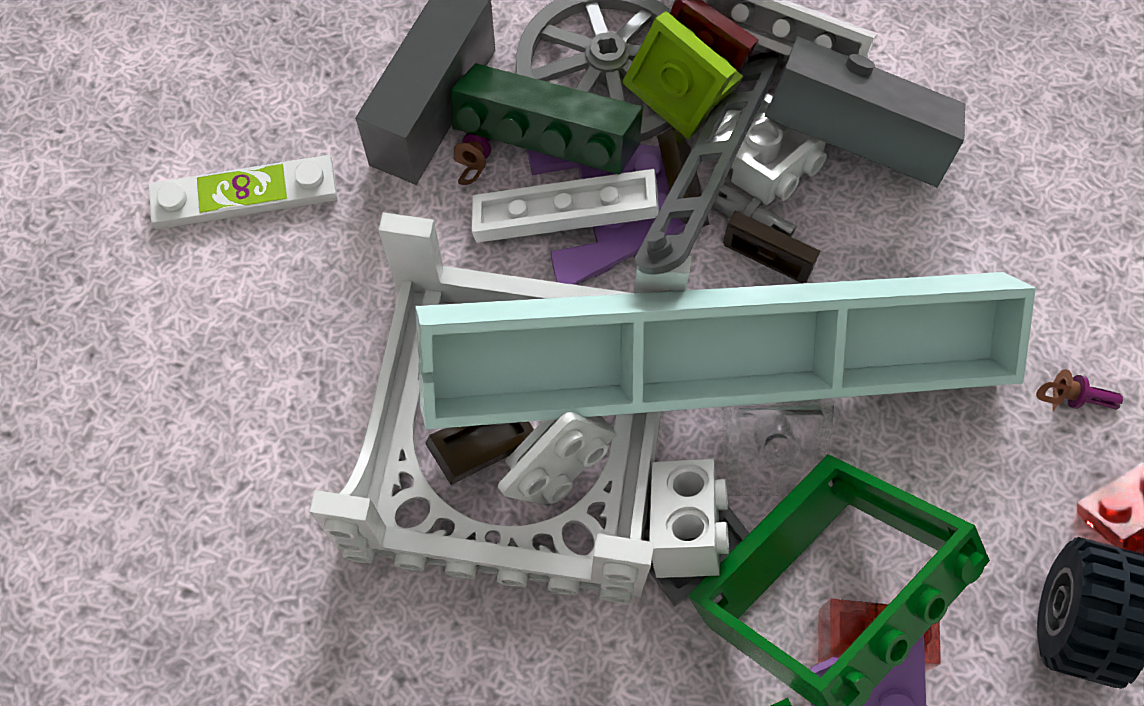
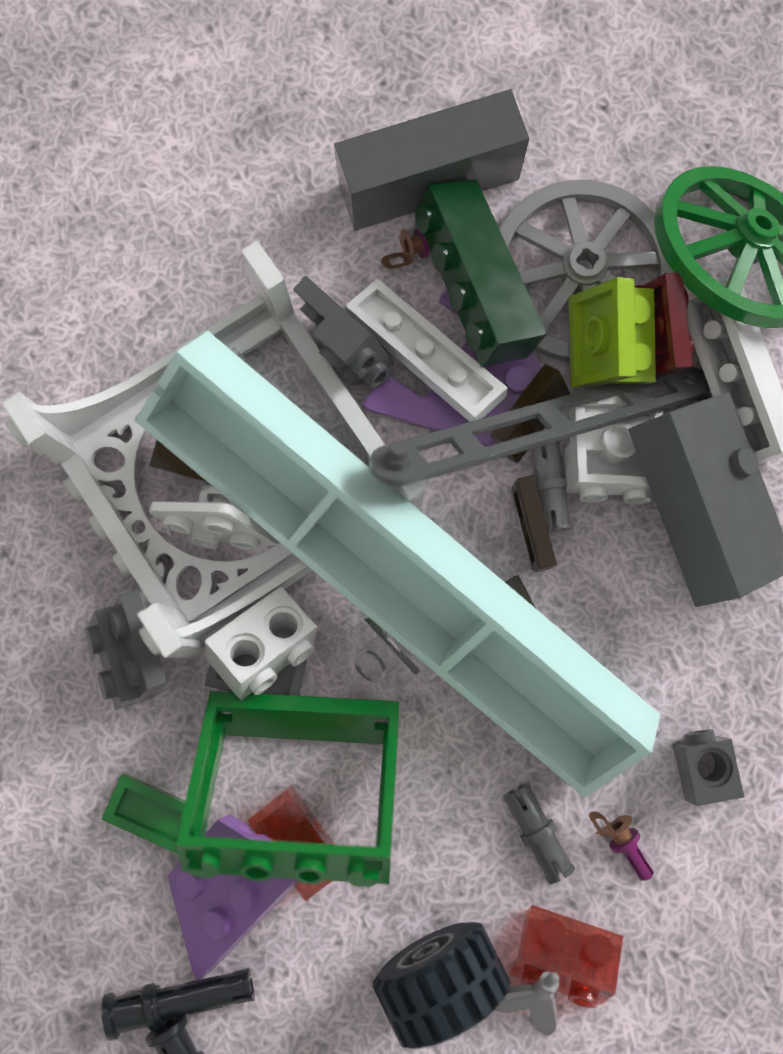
camera: 50 degrees right, 15 degrees up
(242, 192) = (235, 121): white plate -> none
(504, 237) = (345, 341): none -> dark grey plate
(595, 629) = (129, 666): none -> dark grey plate
(1021, 448) = (539, 833): none -> dark grey pin
(1084, 281) = (725, 779): none -> dark grey brick

